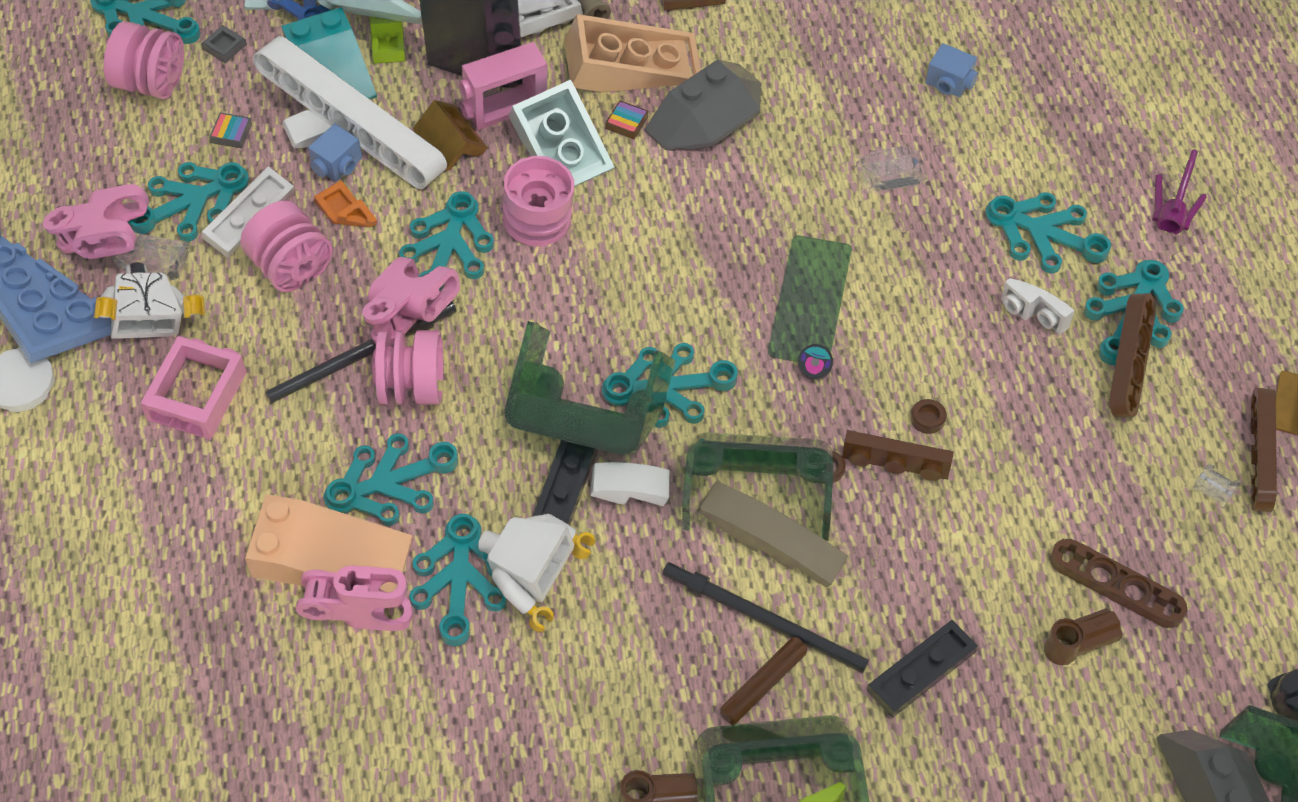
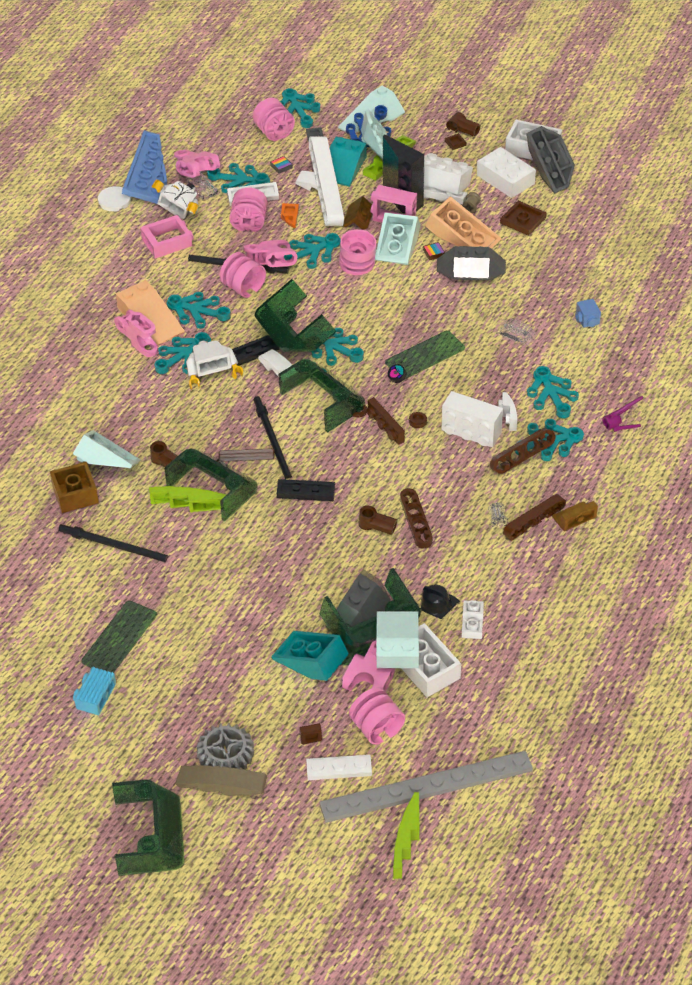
camera: 45 degrees right, 10 degrees down
(335, 153) = (306, 193): medium blue brick -> none
(772, 532) = (306, 413): dark tan slope -> none
(1020, 358) = (472, 419): none -> white brick

